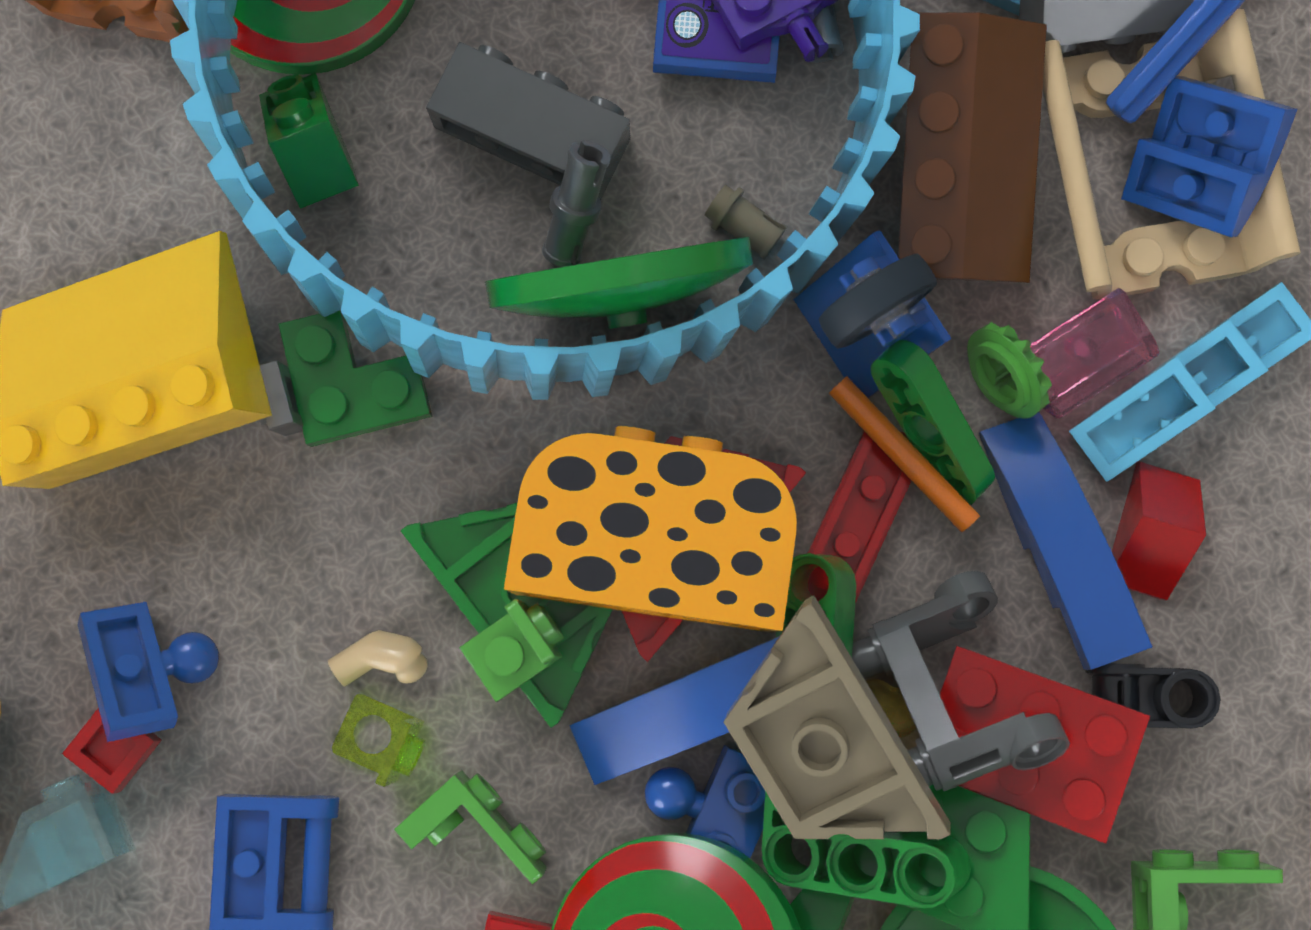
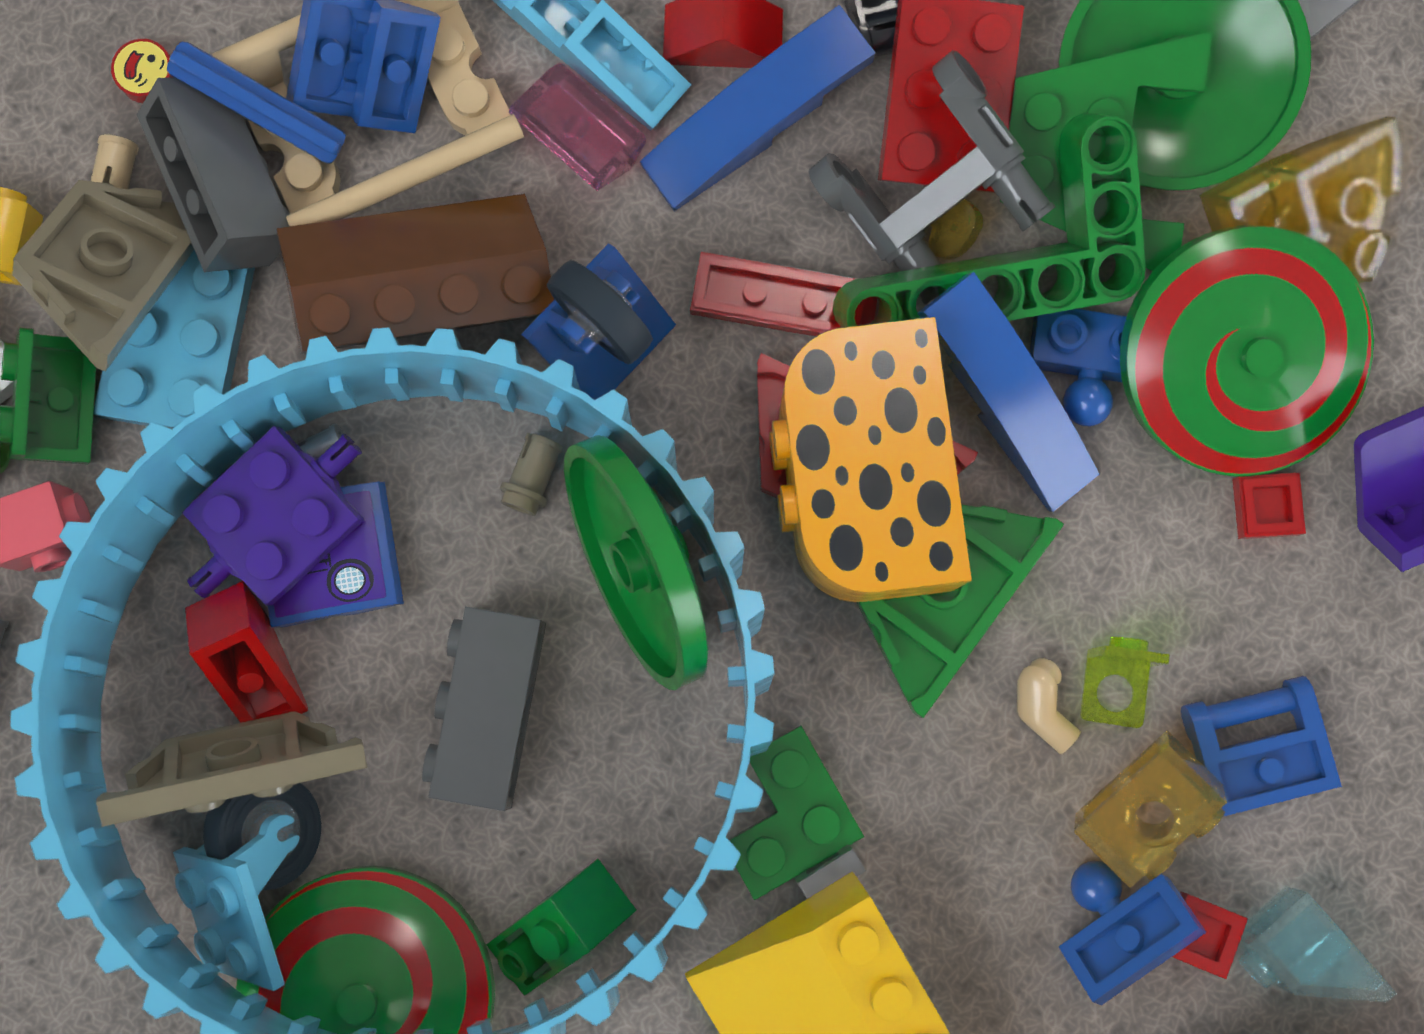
camera: 105 degrees left, 0 degrees up
(271, 747) = (1159, 774): none -> clear yellow brick
(440, 817) = (1171, 604): bright green bracket -> none
(514, 648) = (1006, 573): bright green bracket -> none
(575, 203) = (563, 635): flat silver pin -> none
(826, 741) = (1018, 257): dark tan wing -> none
(904, 454) = (718, 269): orange bar -> none
(932, 417) = (687, 245): green beam -> none
(997, 354) = (616, 192): bright green gear -> none

